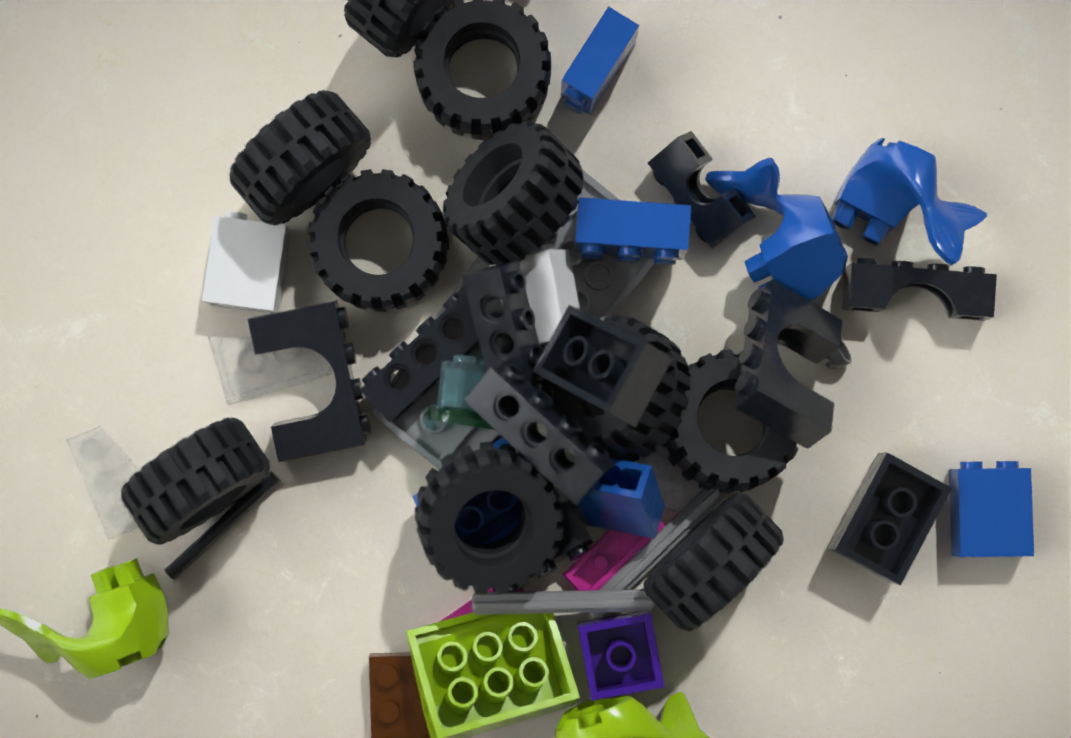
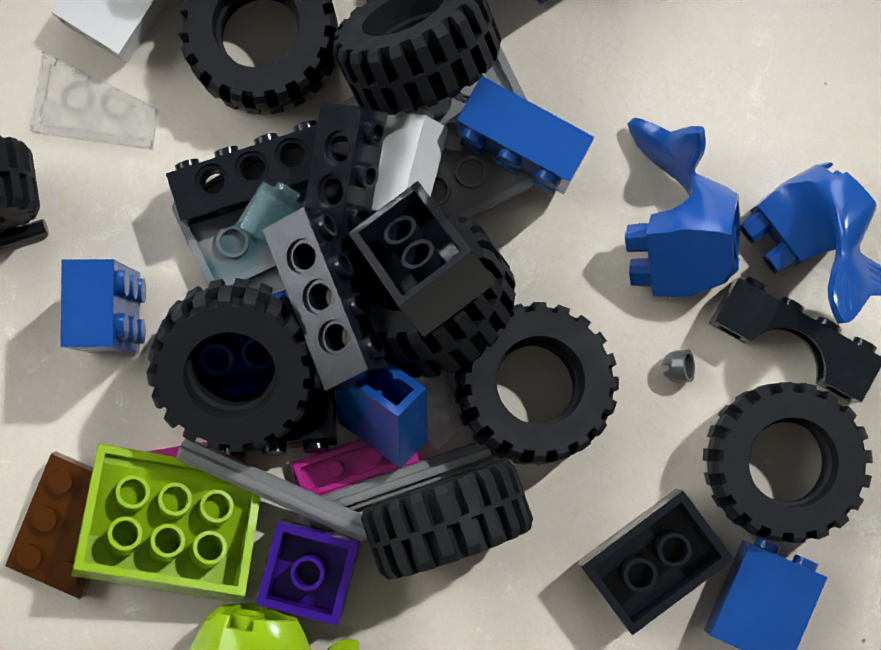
camera: 30 degrees right, 0 degrees up
(321, 330) = (160, 99): black arch -> none
(358, 520) = (101, 306): none -> blue brick
(457, 416) = (250, 246): clear green tile -> none
(679, 171) = (604, 101): black arch -> none
(764, 384) = (584, 359): black arch -> none
(1002, 381) = (841, 468): none -> black tyre

